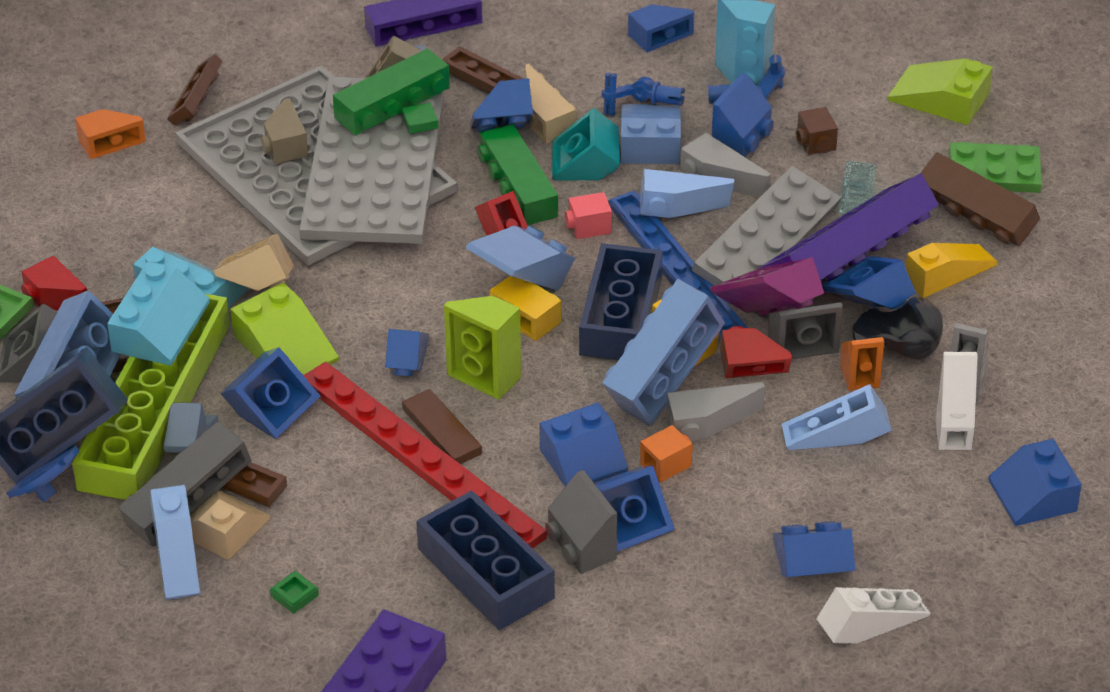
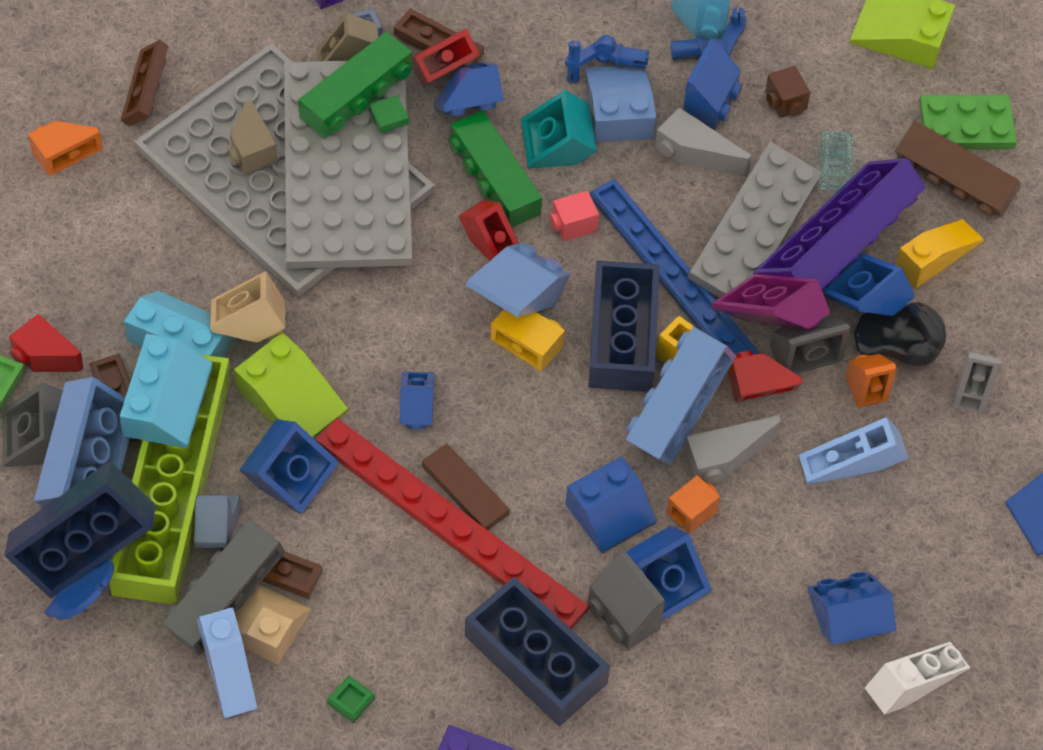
camera: 10 degrees left, 15 degrees up
(477, 82) = (444, 56): none -> red slope
(483, 343) = (498, 397): lime slope -> none
(550, 110) = (519, 88): tan slope -> none
(682, 194) = (662, 184): light blue slope -> none
(957, 401) = (971, 429): white slope -> none

